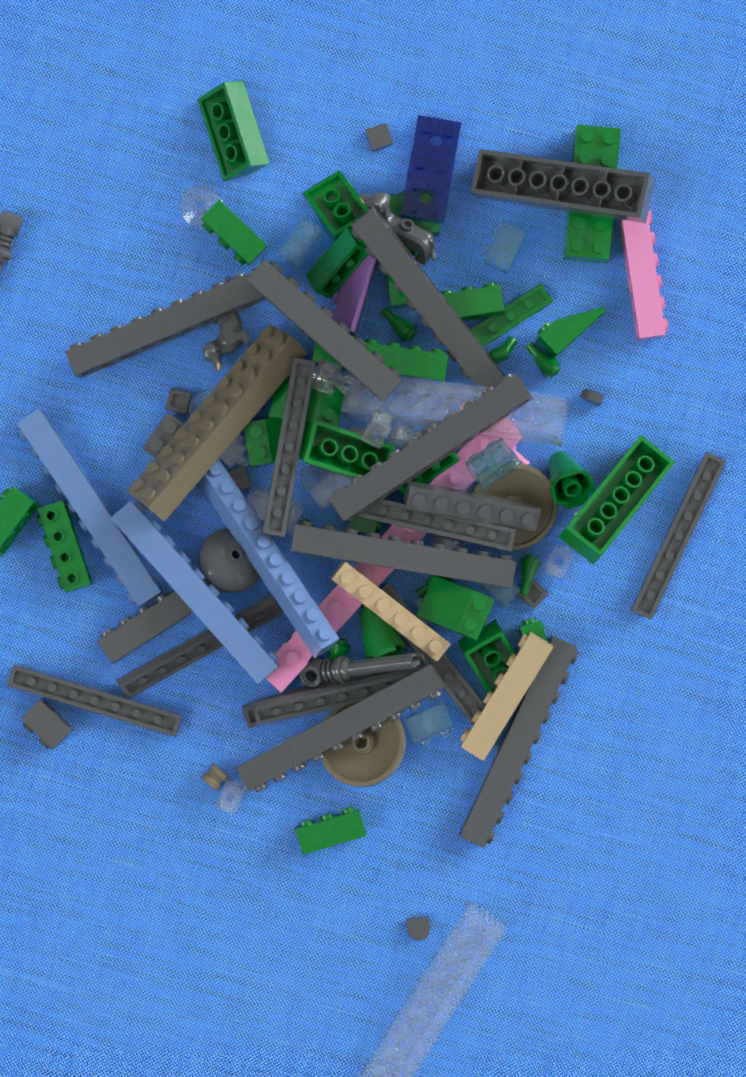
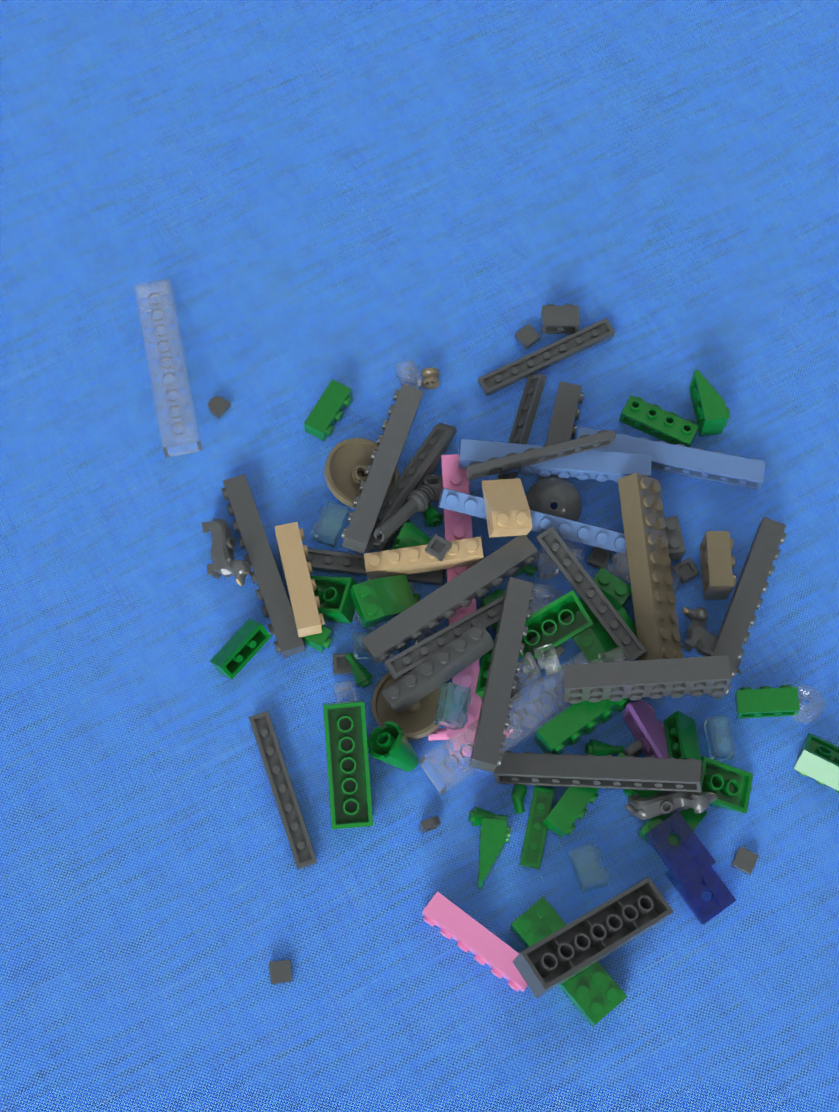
camera: 135 degrees right, 20 degrees down
(90, 736) = (527, 336): none -> dark grey tile
(153, 376) = (717, 565): none -> dark tan brick
(216, 609) = (534, 456): none -> dark grey plate
(286, 583) = (506, 508): none -> tan slope
(376, 602) = (438, 547): none -> dark grey tile
(377, 299) = (634, 749): none -> dark grey tile
(543, 781) = (222, 553): none -> dark grey animal
(606, 683) = (240, 649): none -> green brick

